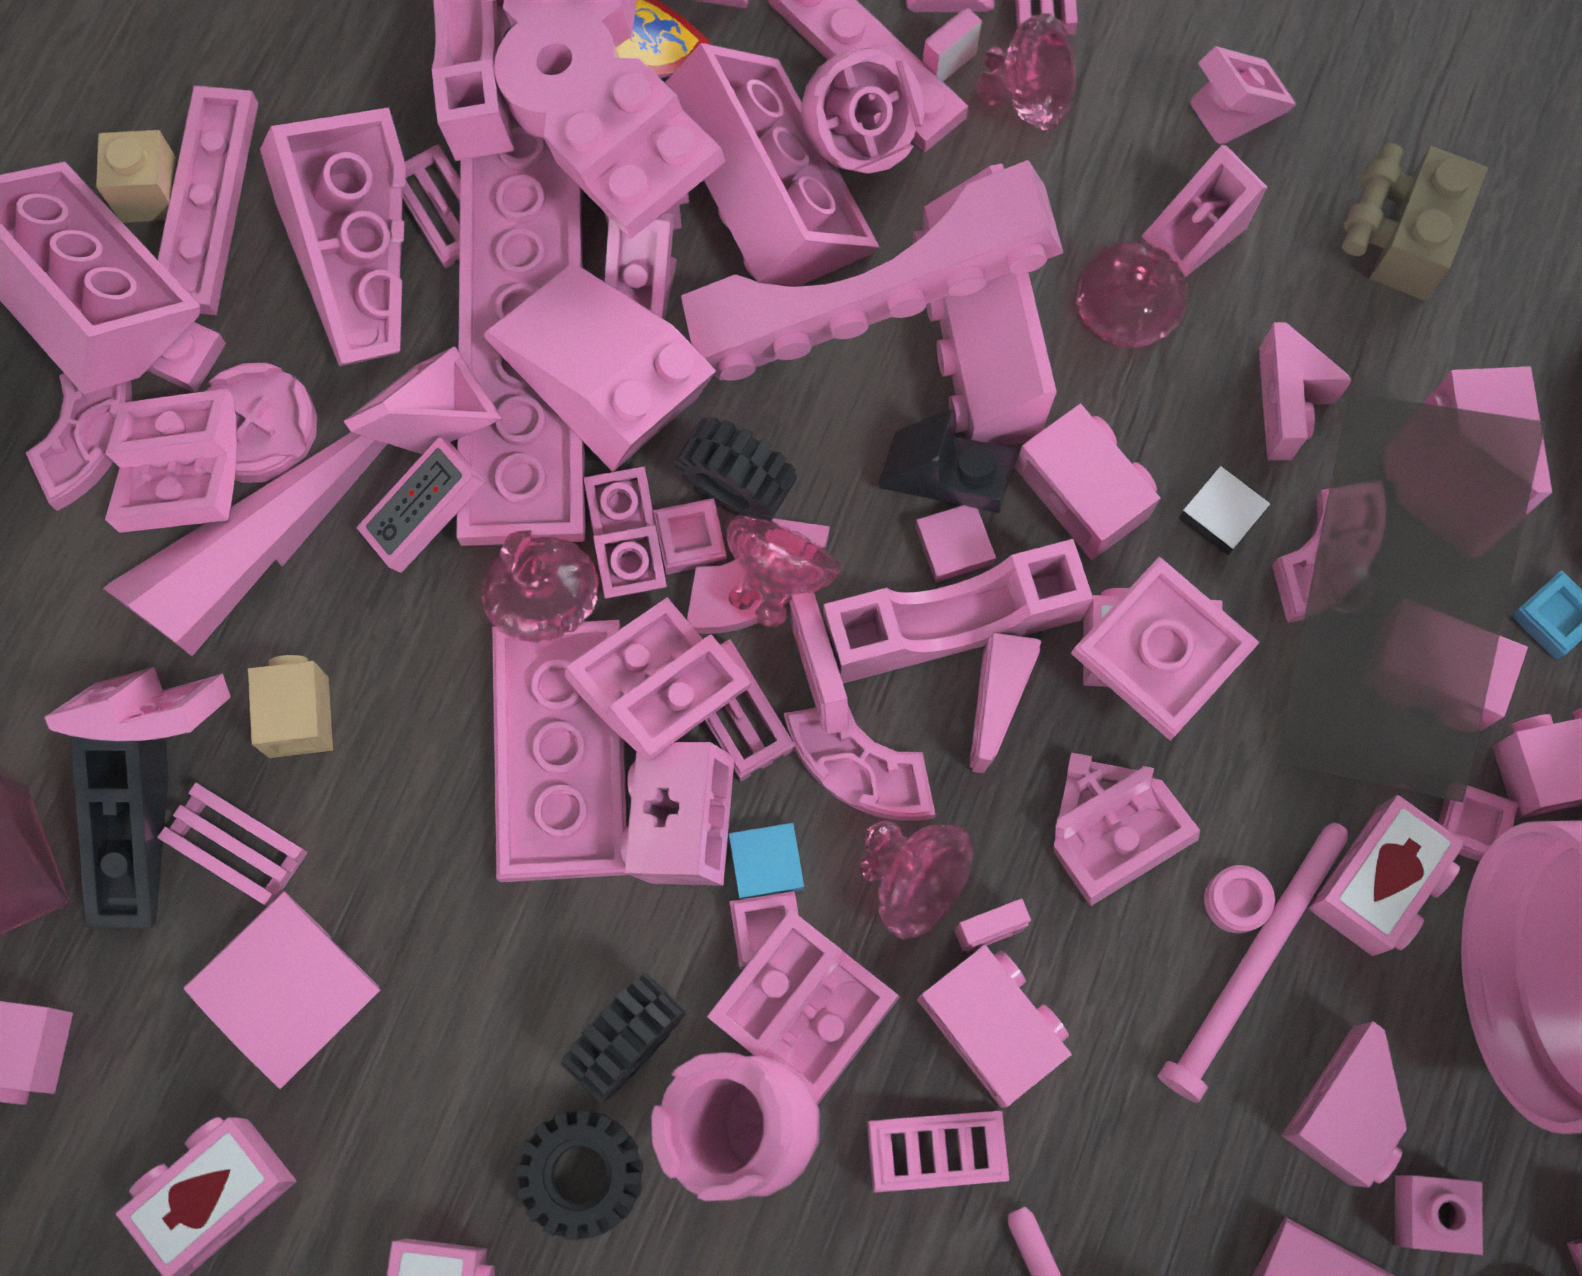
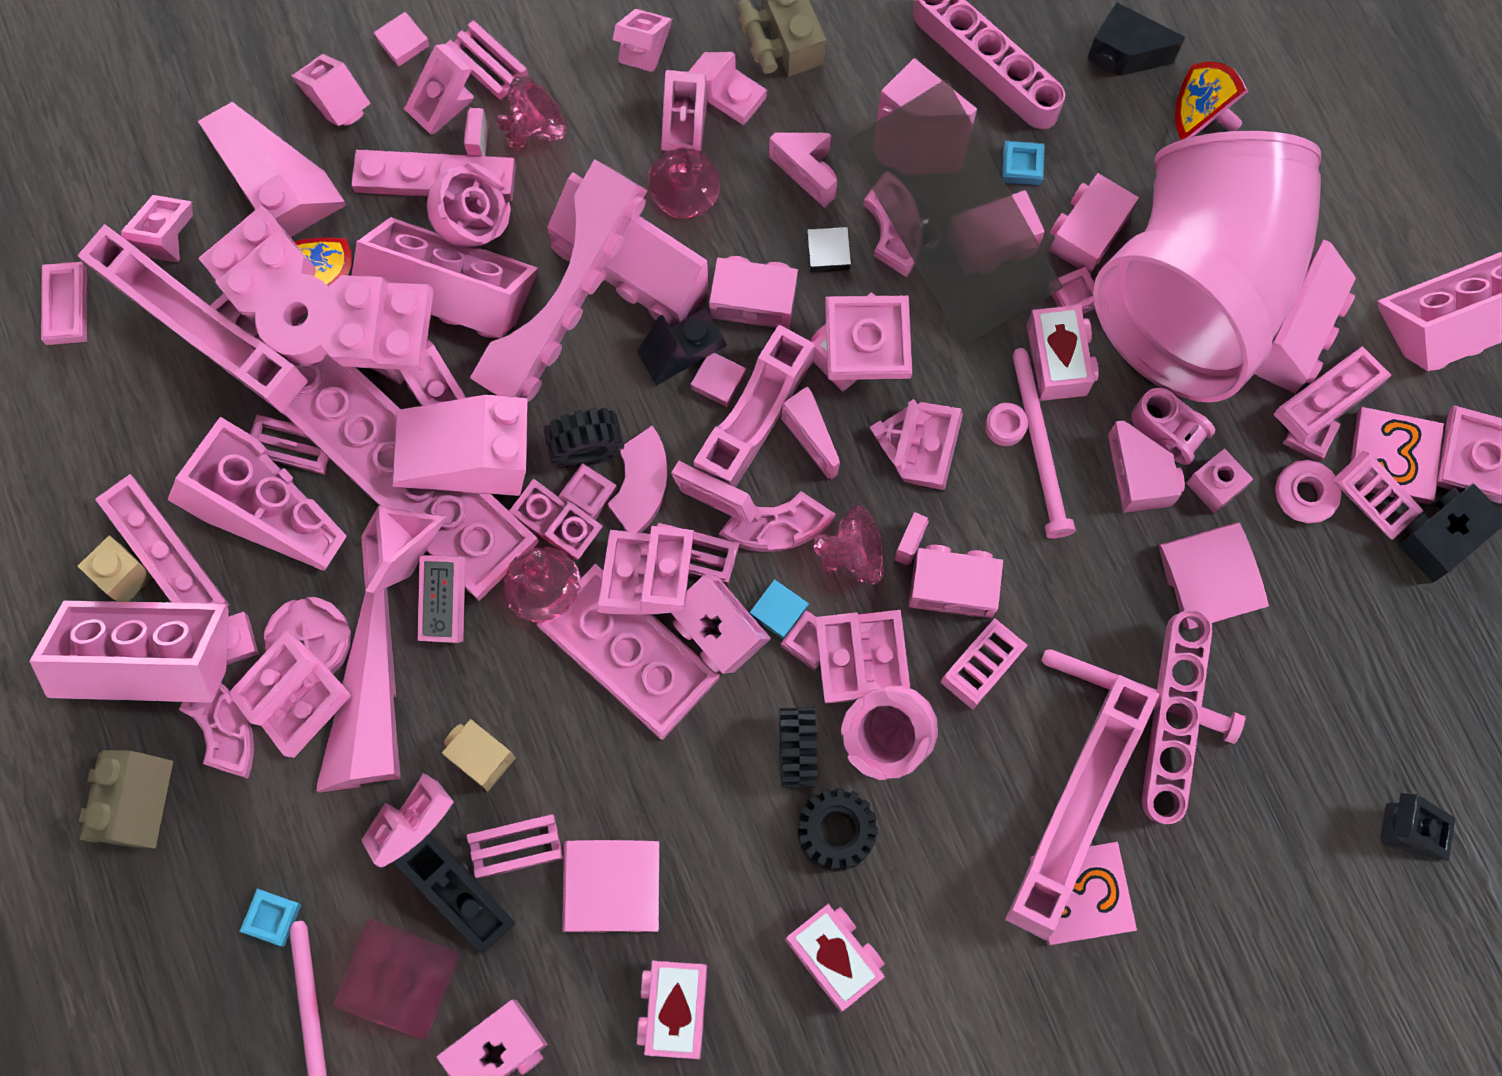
camera: 45 degrees left, 0 degrees up
(775, 566) = (650, 464): clear pink hair -> none
(1286, 232) = (728, 87): none -> bright pink slope
(1445, 1095) = (1173, 427): none -> bright pink piece

